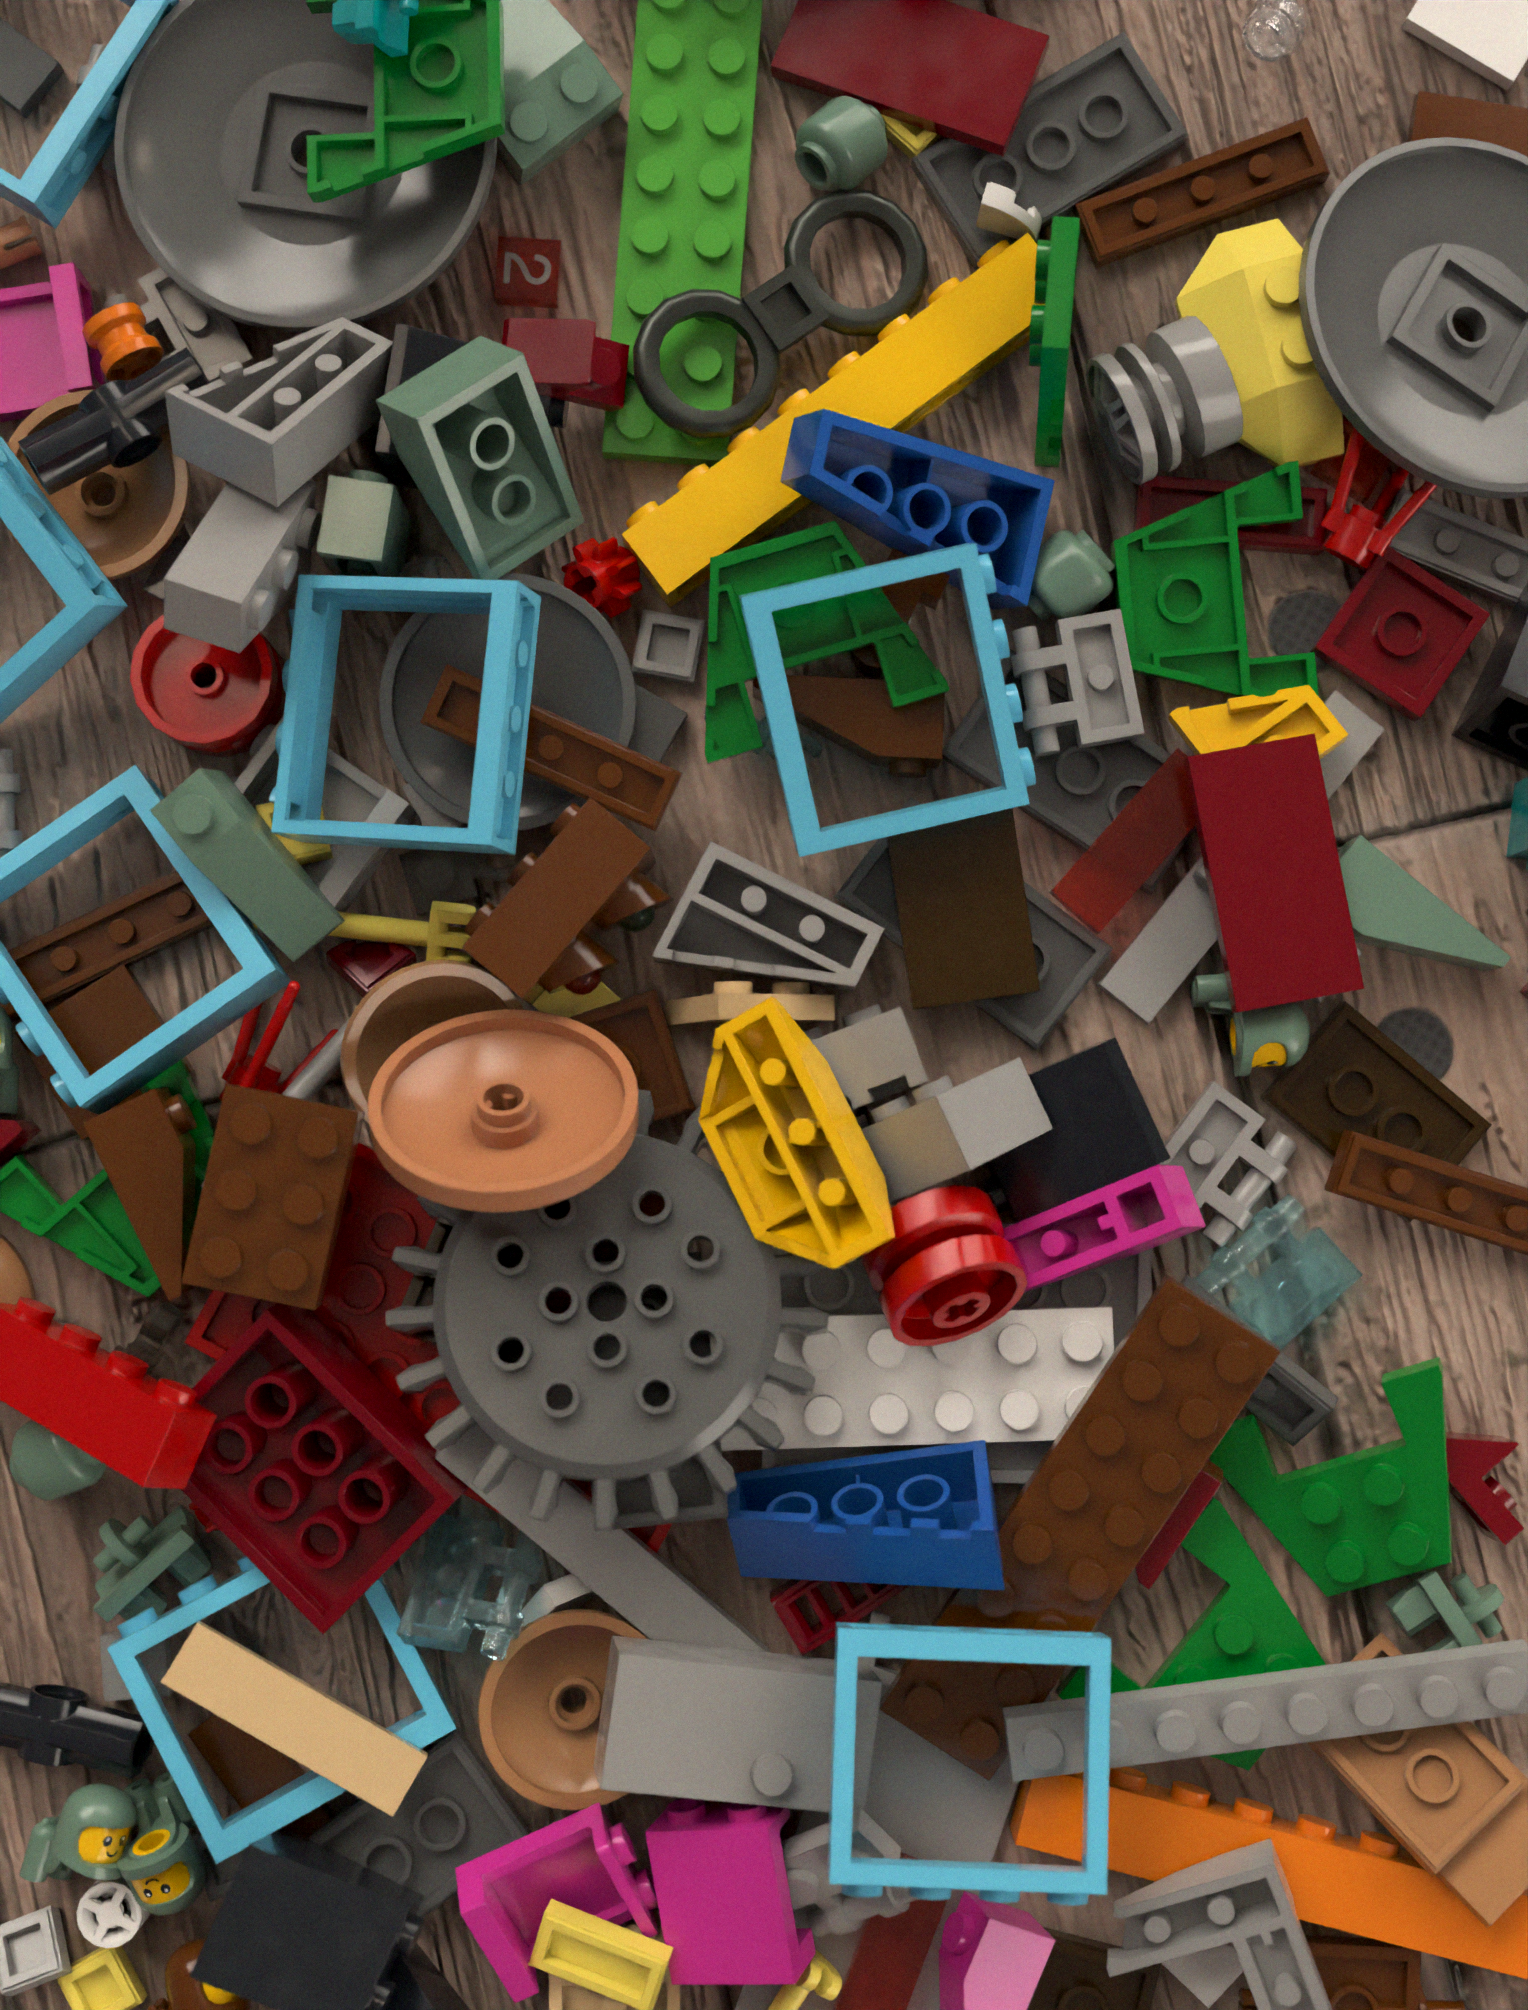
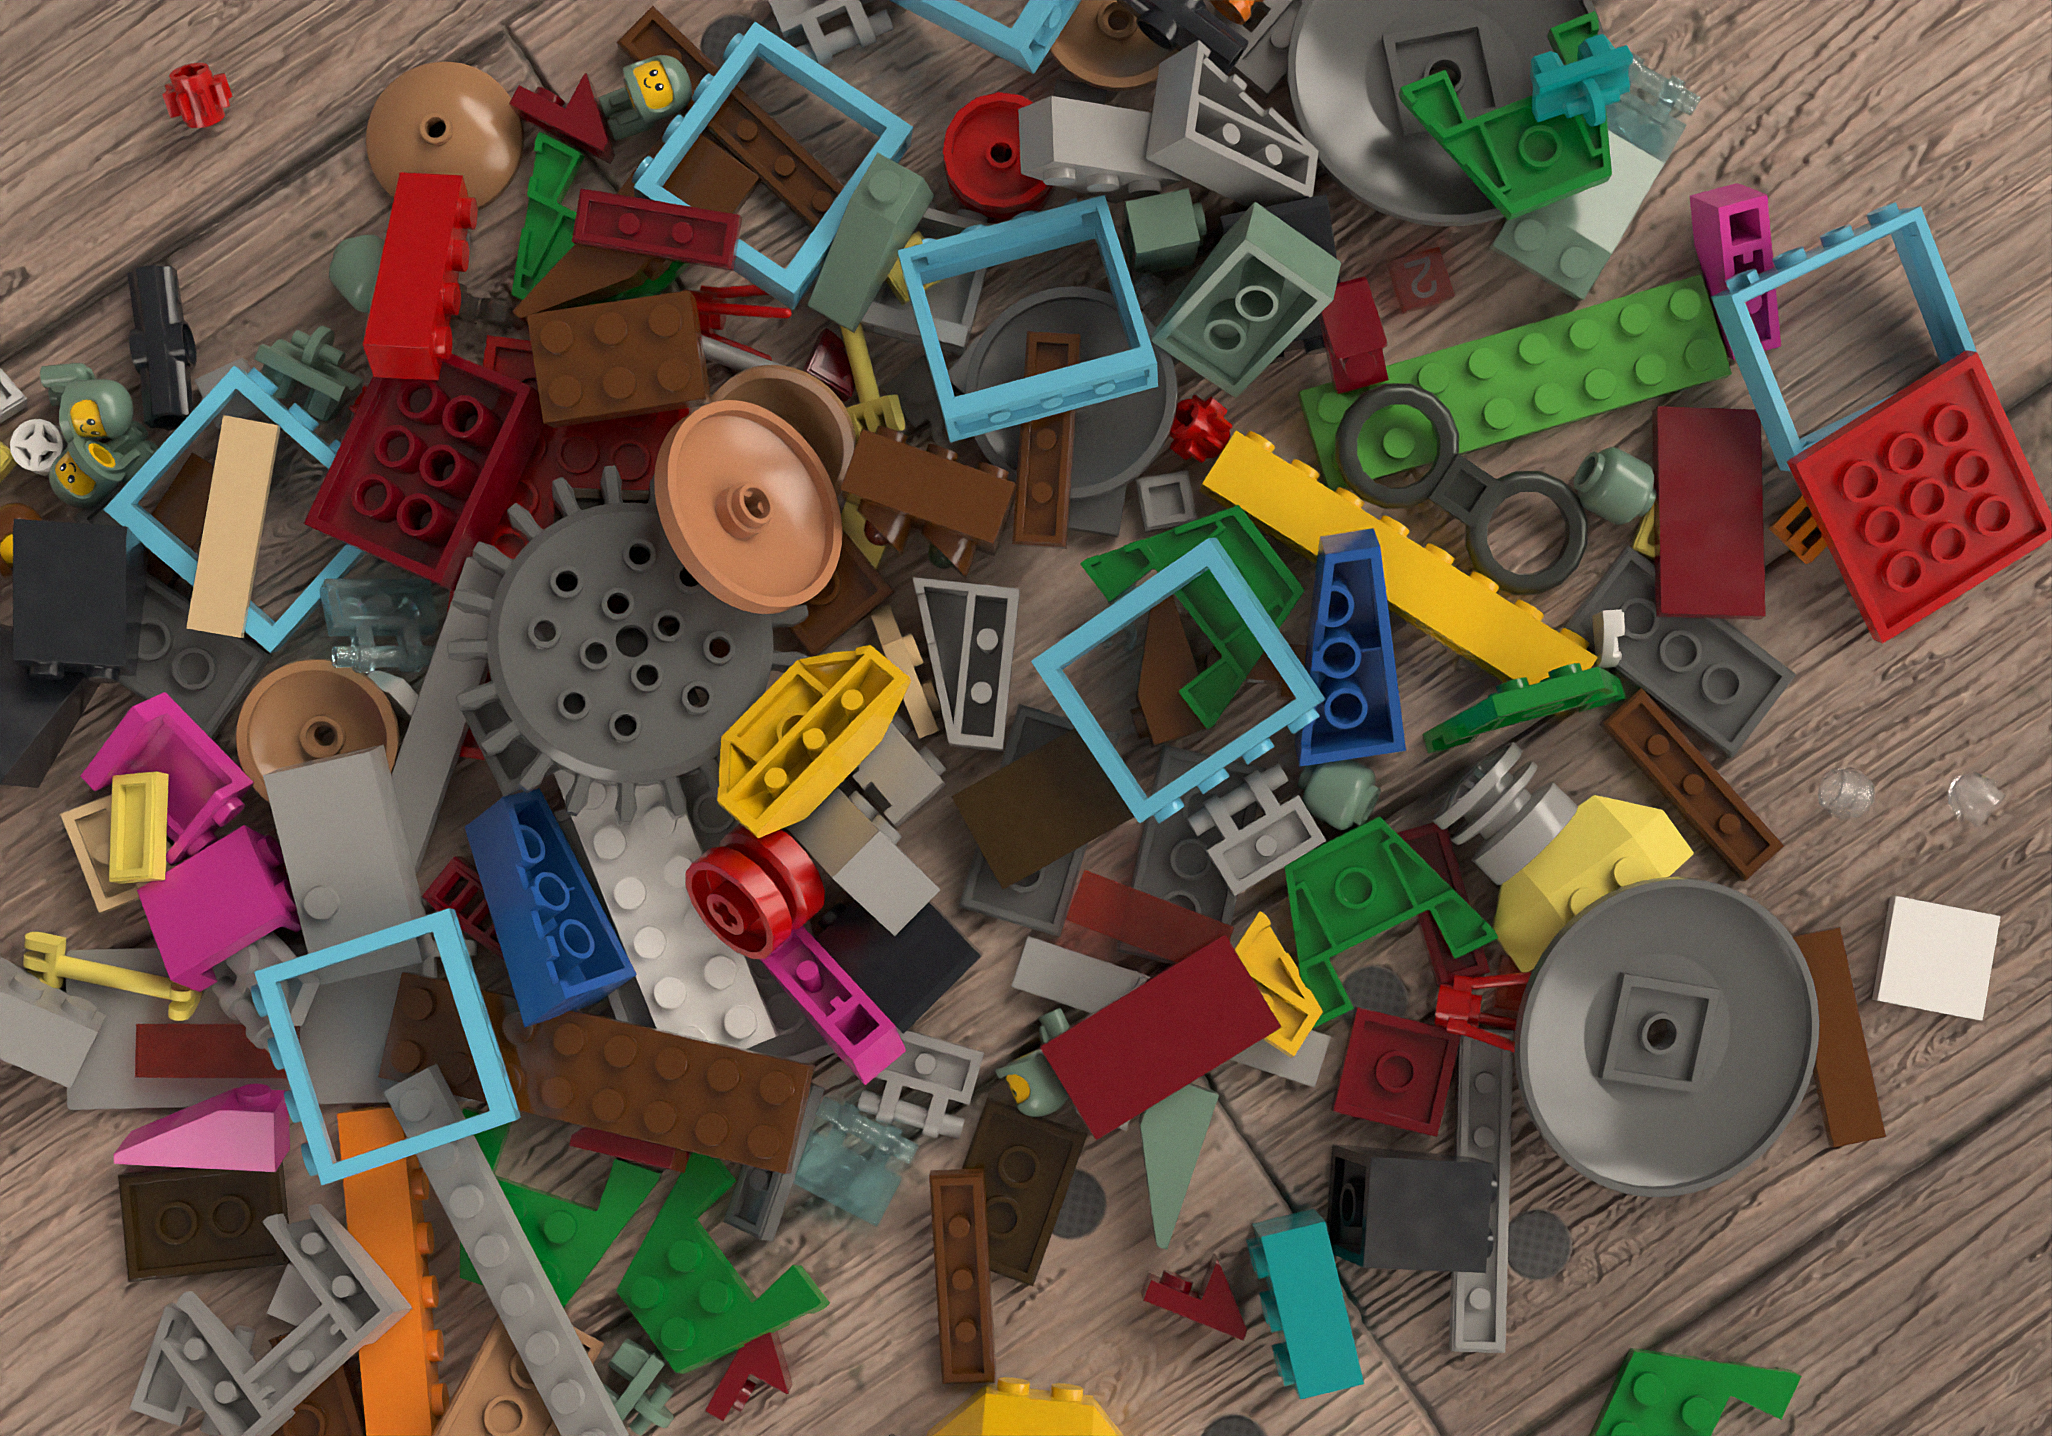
camera: 70 degrees right, 0 degrees up
(139, 1097) = (657, 229): none -> dark red tile

